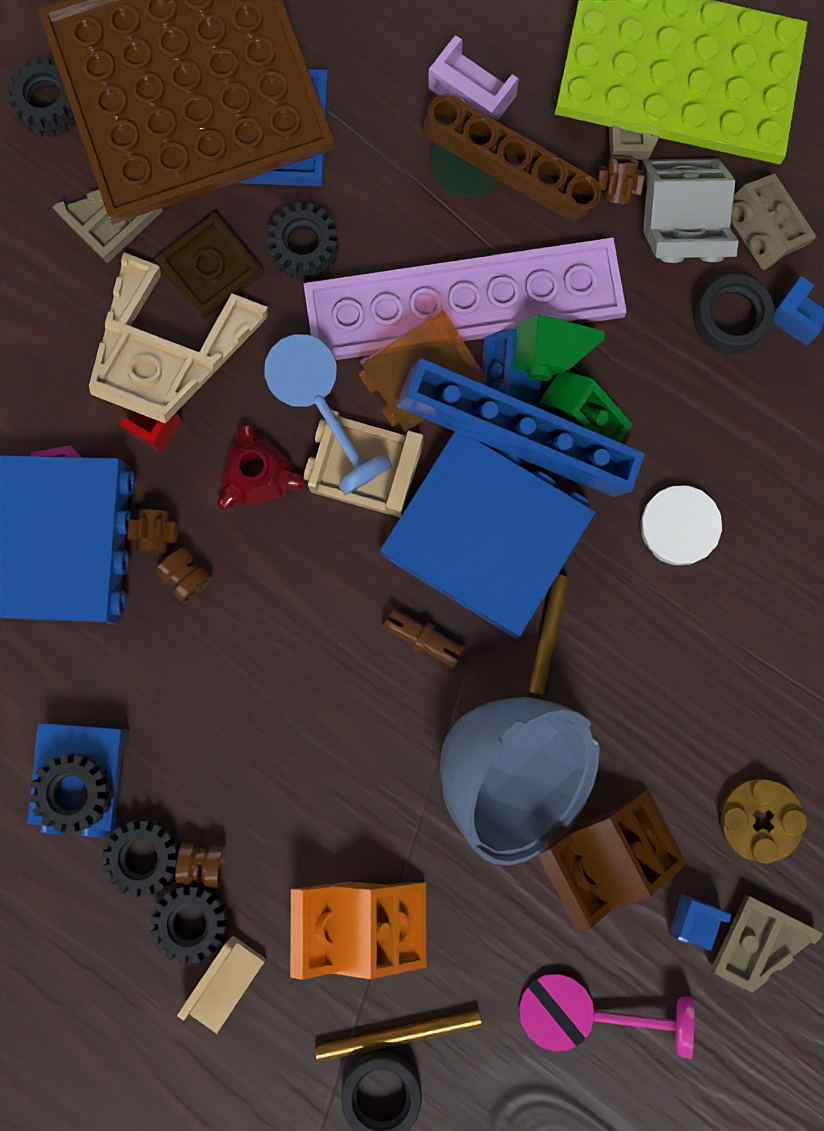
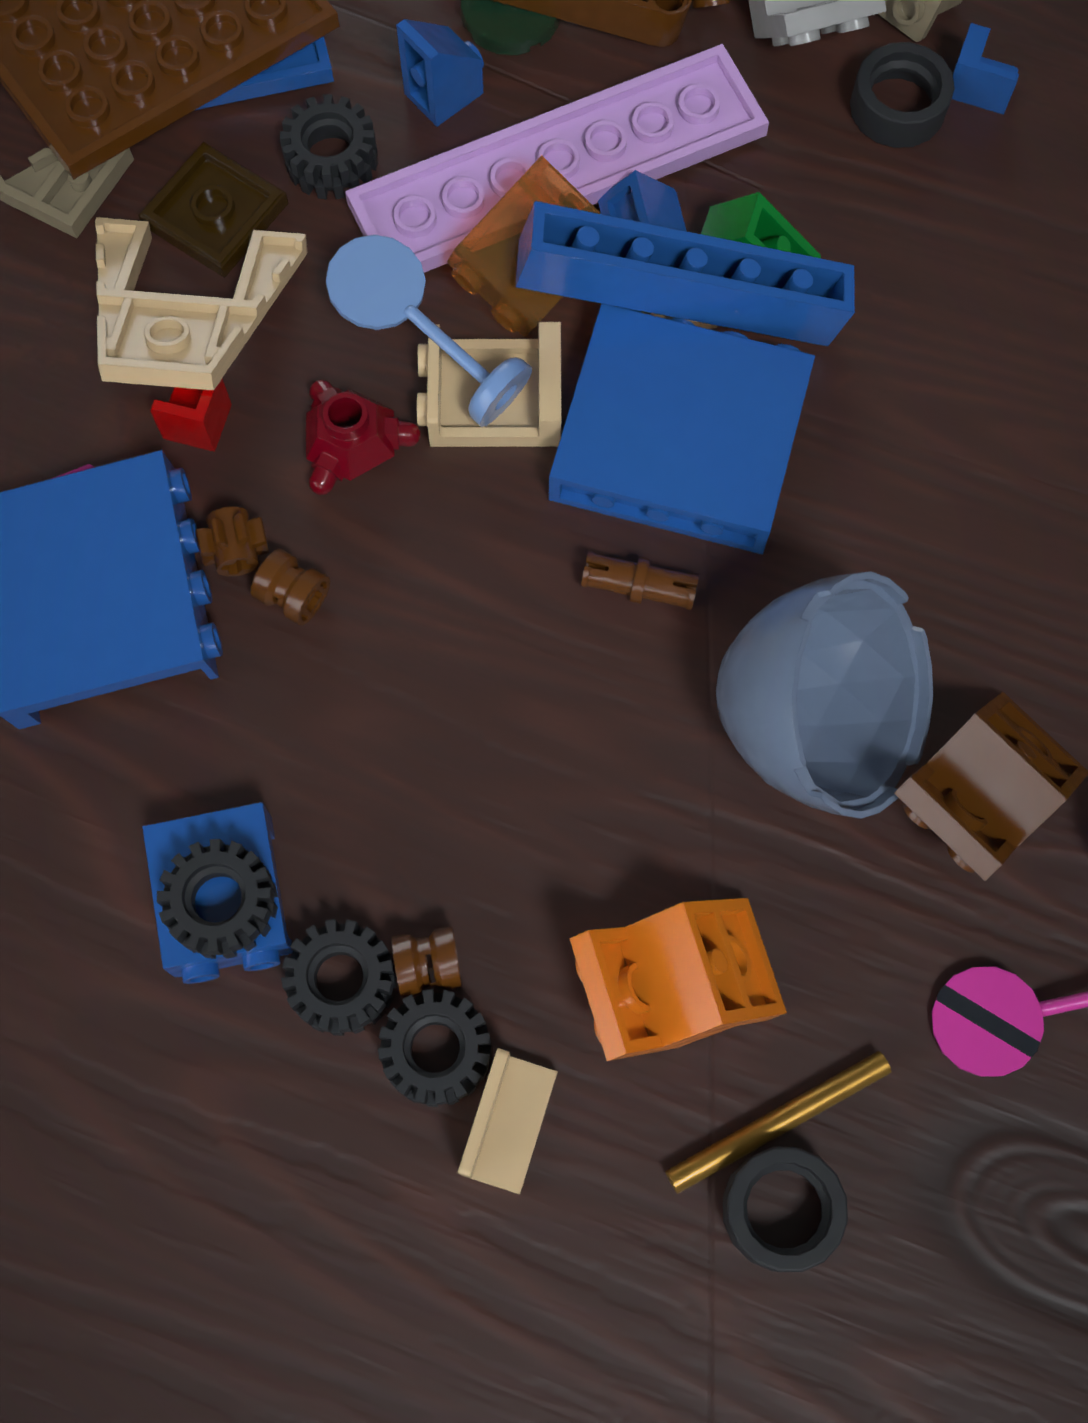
camera: 20 degrees left, 10 degrees down
(399, 203) = (438, 69): none -> blue slope
(548, 635) = (802, 520): pearl gold bar -> none
(551, 346) = (688, 174): green slope -> none
(681, 525) = (926, 356): white tile -> none

